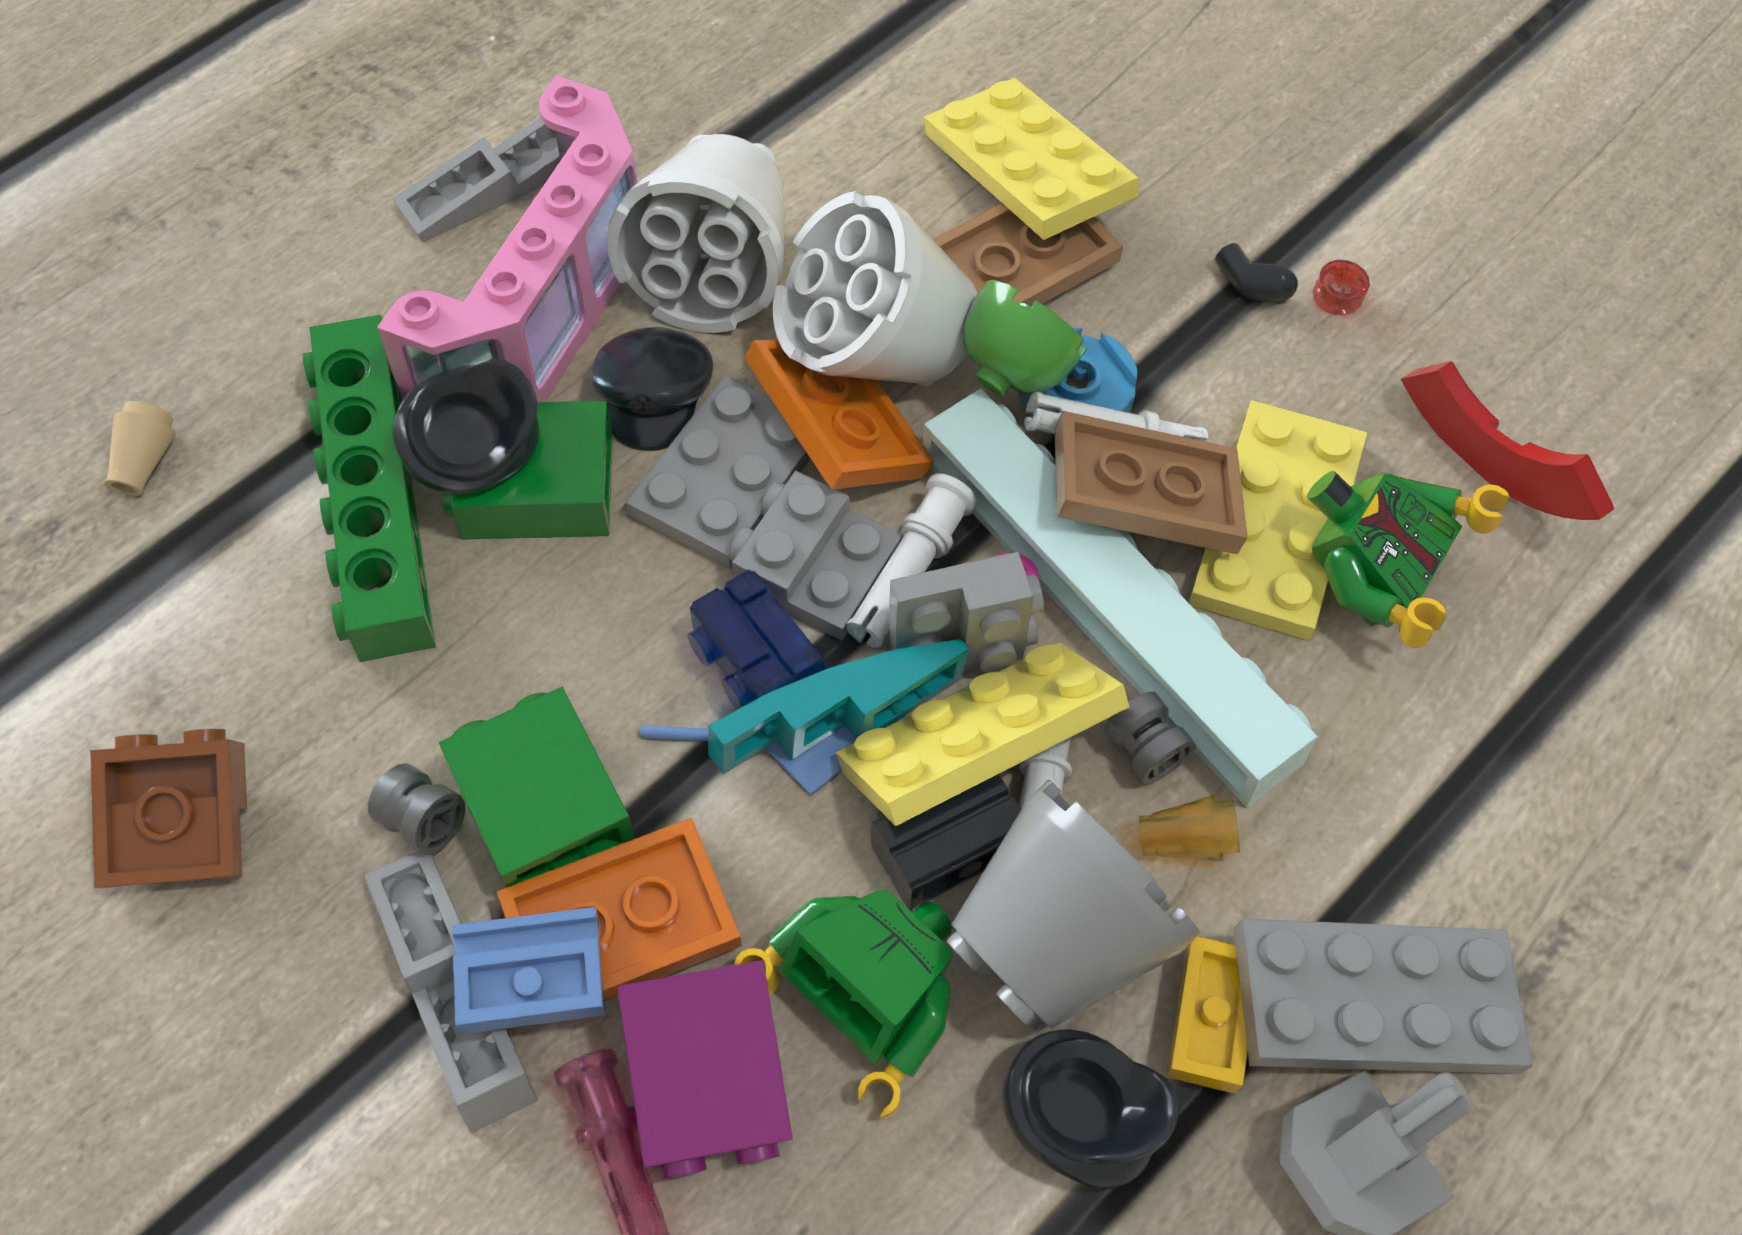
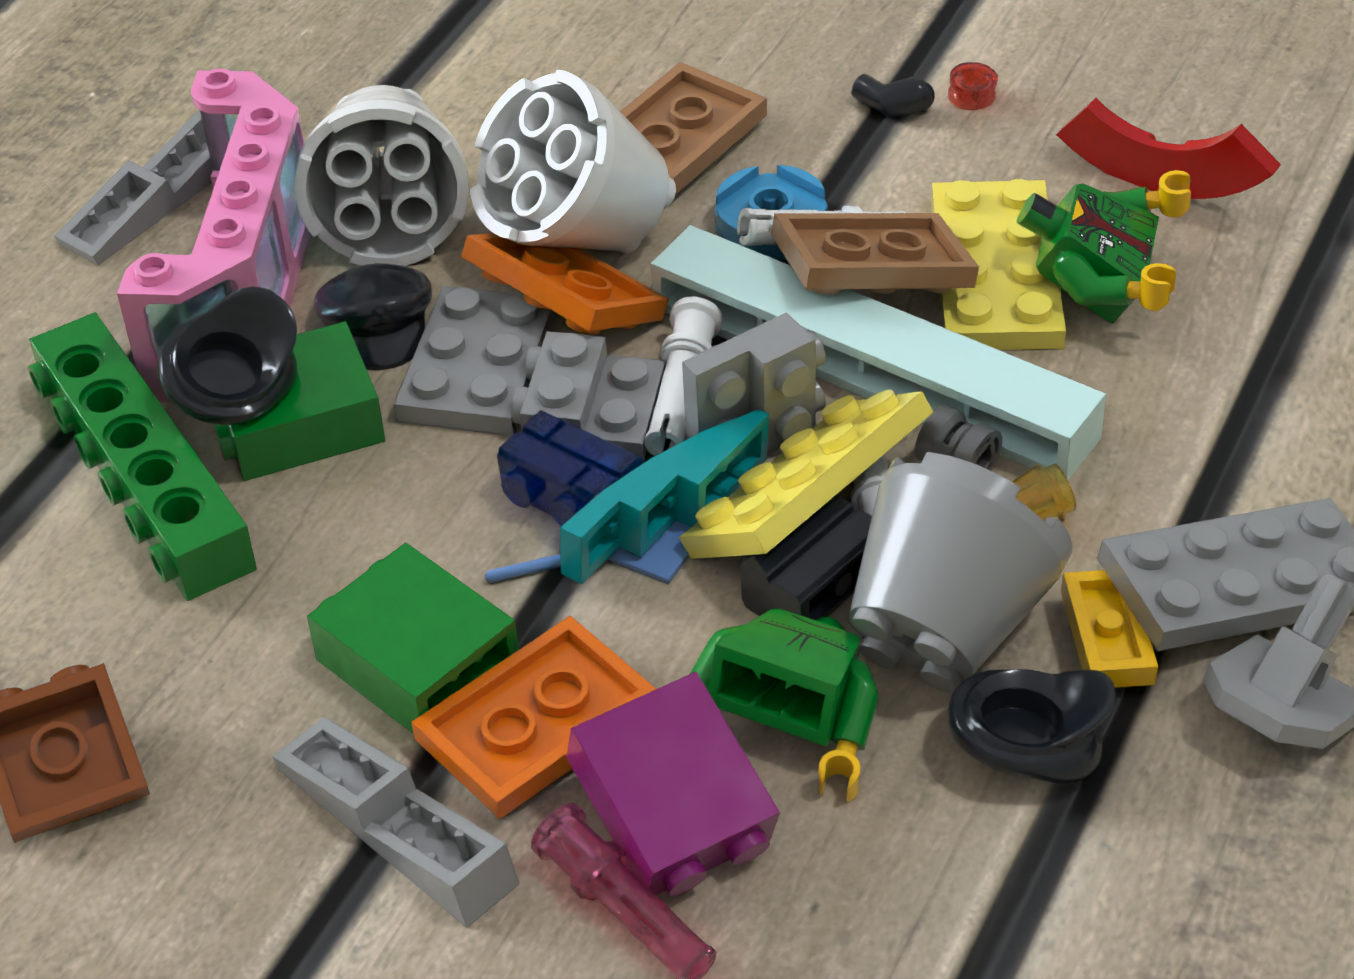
camera: 15 degrees left, 15 degrees down
(425, 816) = (303, 681): flat silver wheel -> none
(527, 970) = (475, 760): medium blue plate -> none
(1018, 343) = (712, 171): bright green cylinder -> none
(1031, 157) = (652, 52): light yellow plate -> none

